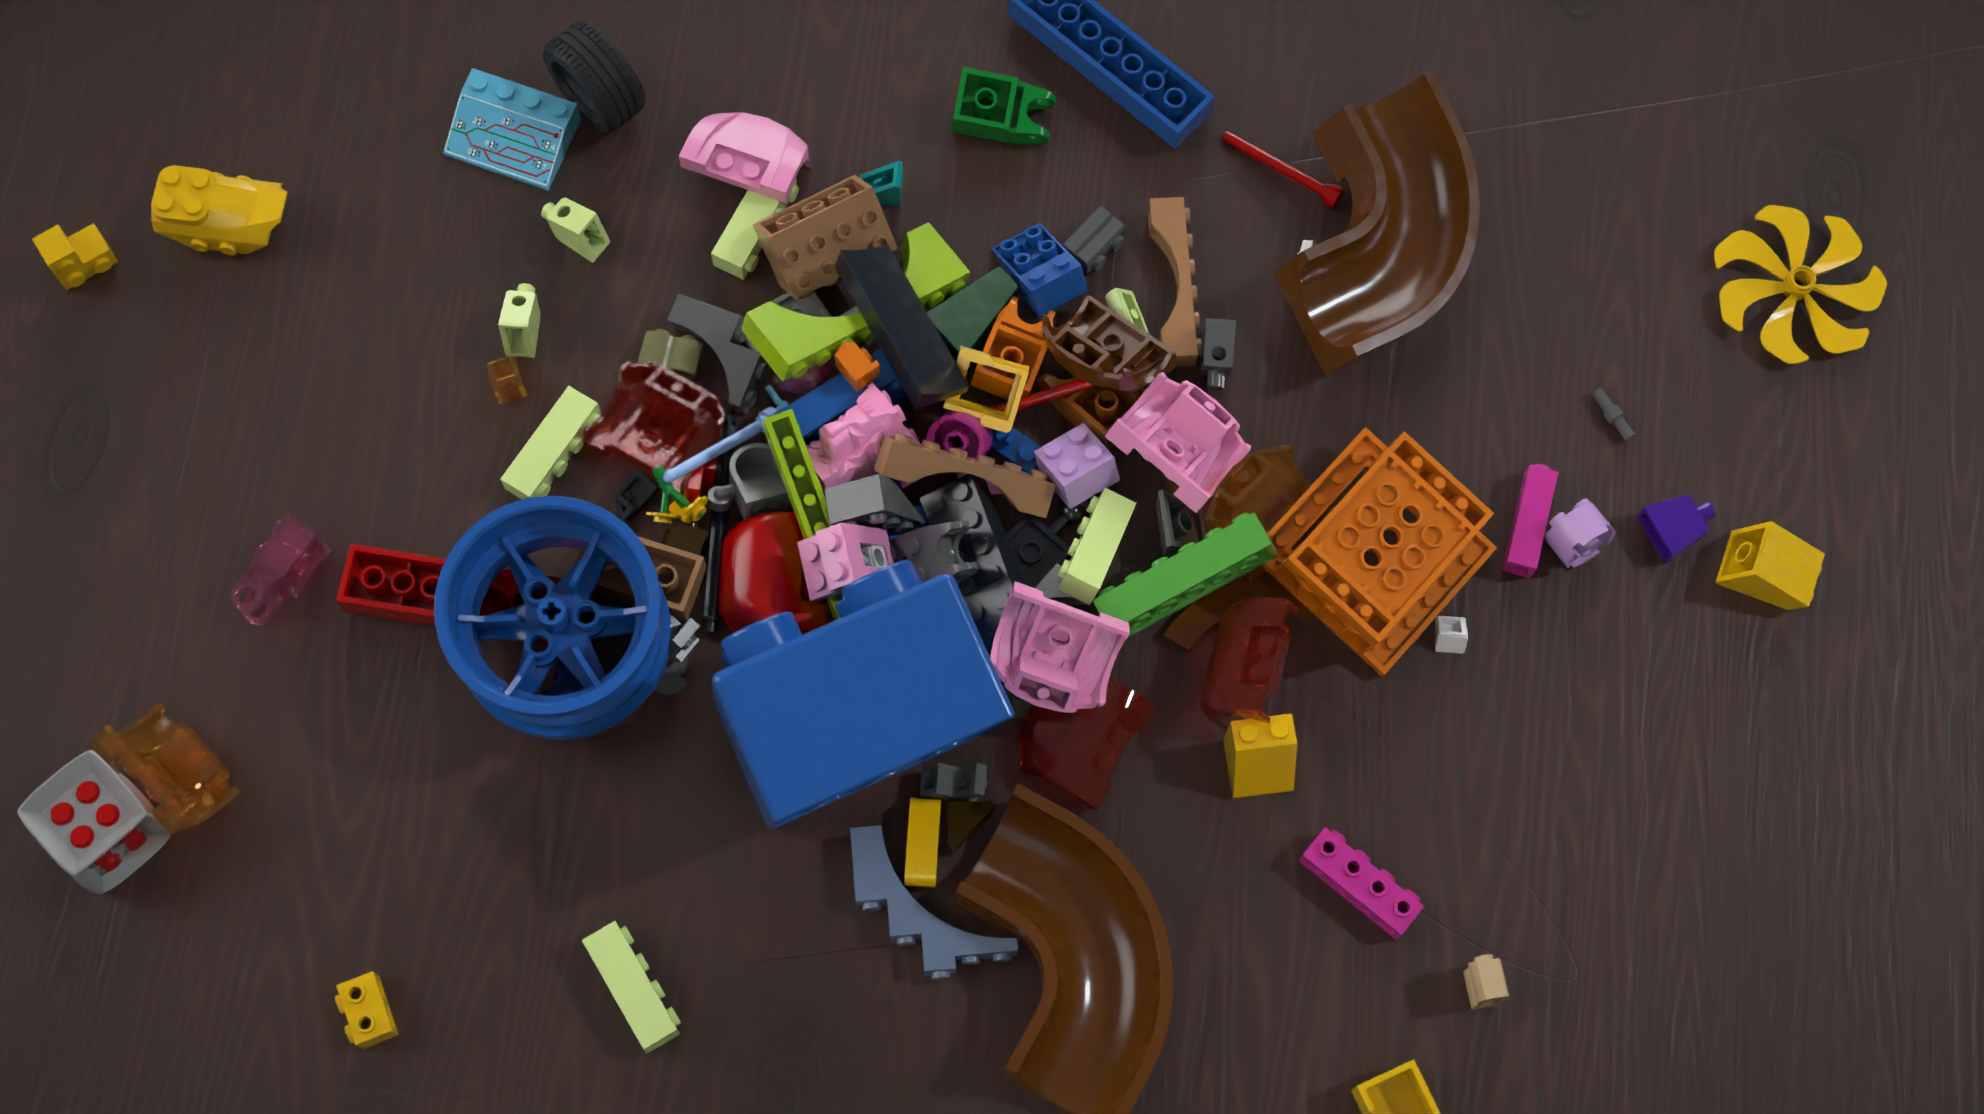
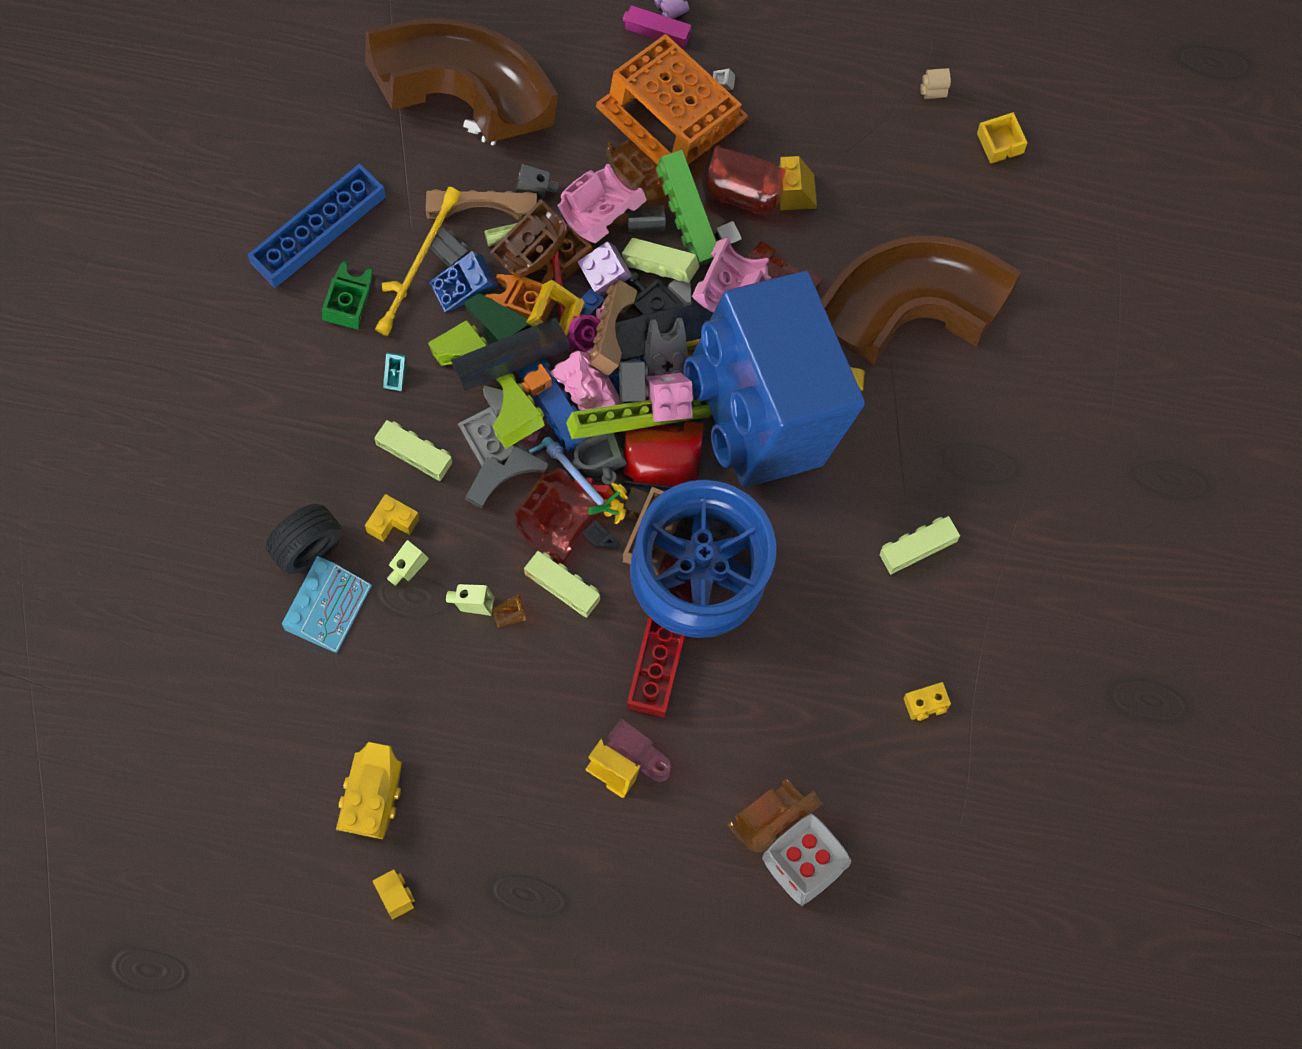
camera: 85 degrees left, 0 degrees up
(251, 529) = (612, 769): none -> yellow piece
(651, 200) = (390, 514): none -> yellow brick
(677, 354) = (505, 504): olive brick -> none
(746, 153) = (367, 447): bright pink piece -> none
(808, 236) = (436, 401): medium nougat brick -> none
(908, 921) = (886, 387): sand blue arch -> none
(1024, 177) = (392, 286): none -> yellow arm
(1164, 655) = (729, 230): none -> white slope
(1167, 226) = (450, 198): none -> yellow hose
(1328, 193) = (429, 110): red piece -> none
(1361, 883) = (872, 143): dark pink brick -> none

